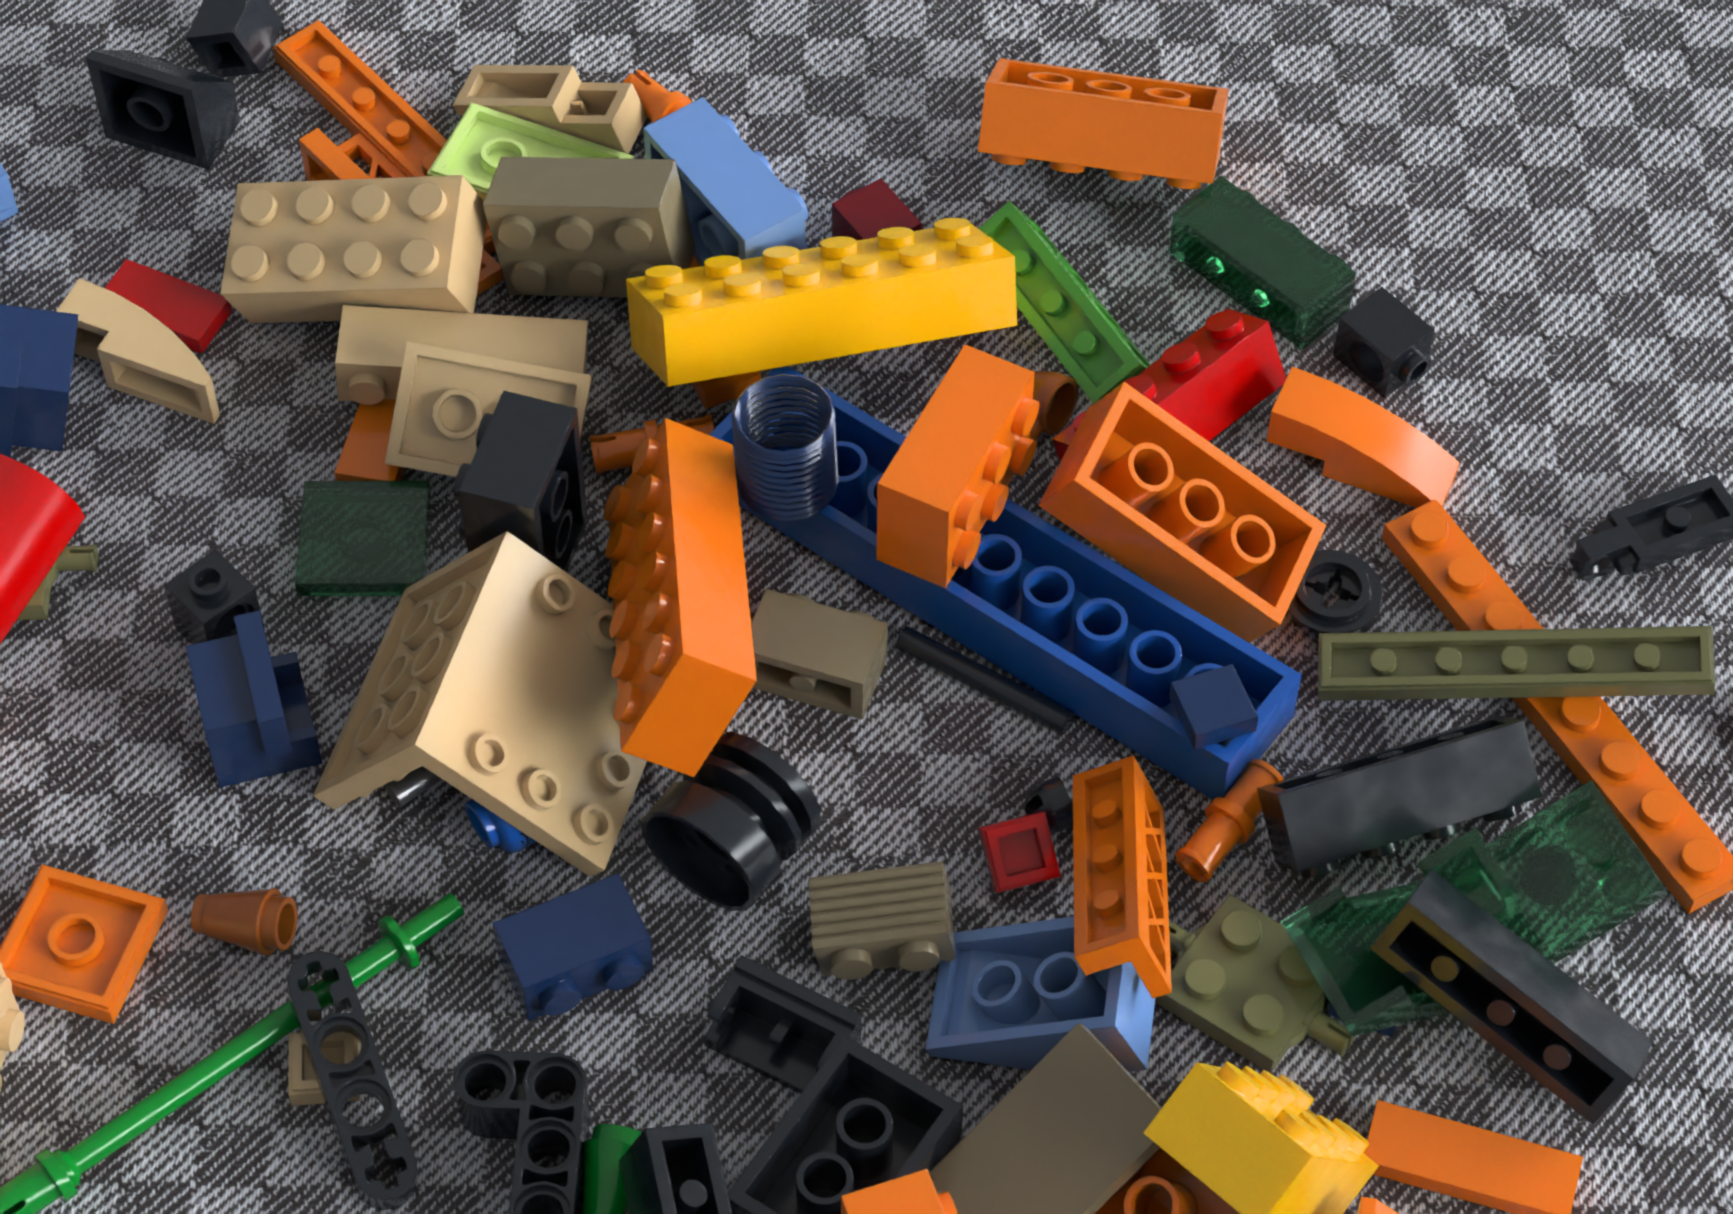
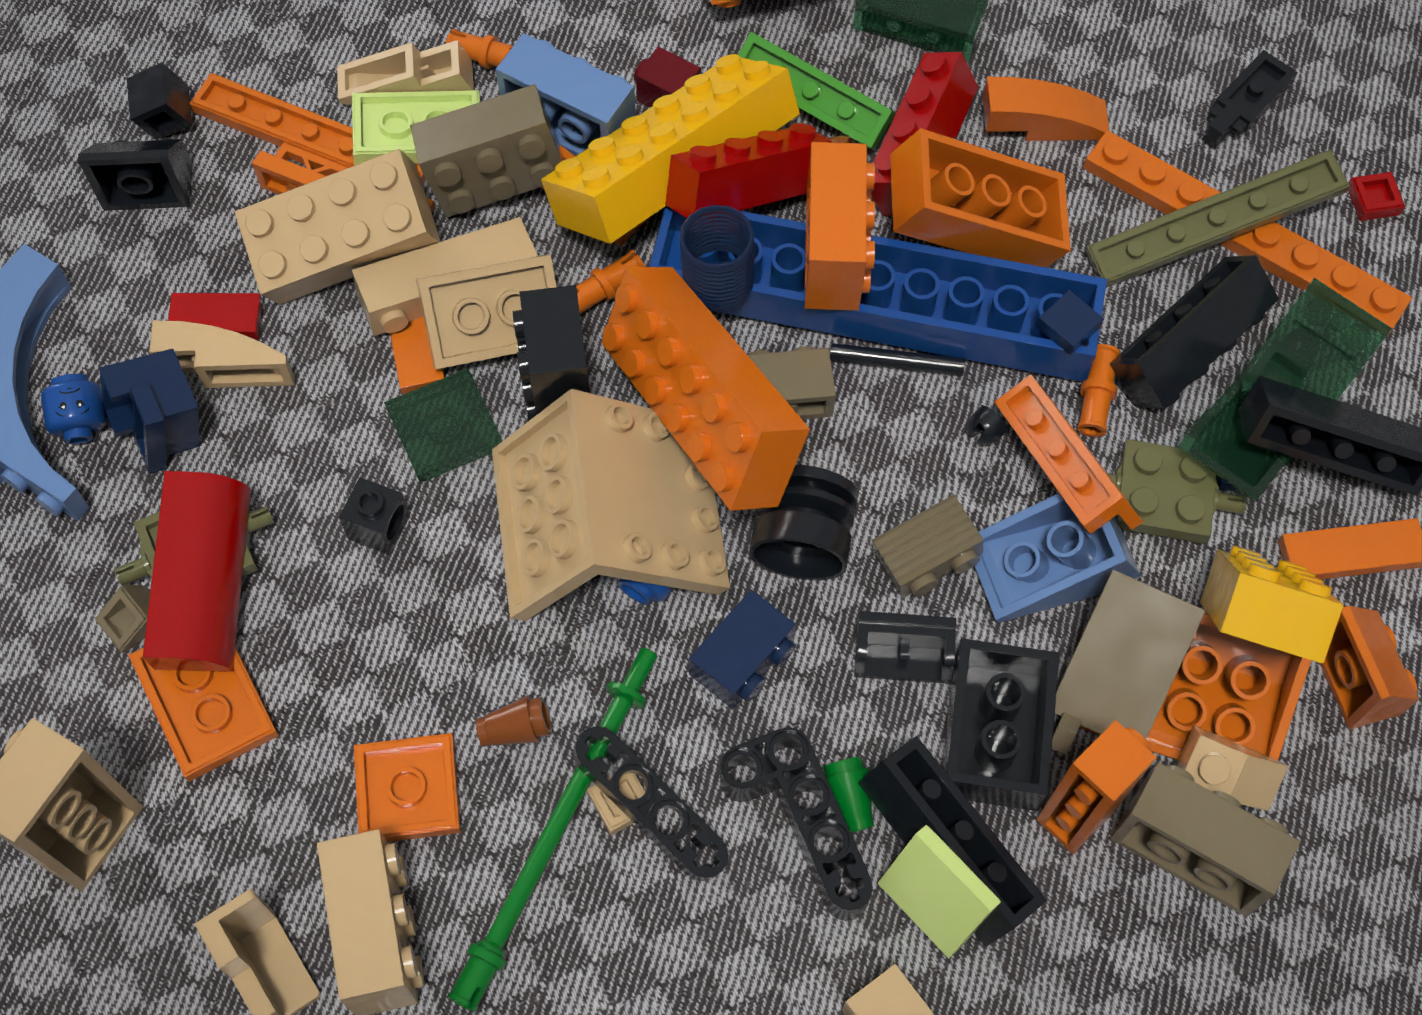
camera: 25 degrees left, 10 degrees up
(252, 705) = (439, 575): dark blue plate -> none
(876, 359) = (742, 170): none -> red brick
(1019, 852) = (984, 465): red tile -> none
(1358, 597) = (1094, 211): black gear -> none
(1384, 343) = (1024, 39): black brick -> none

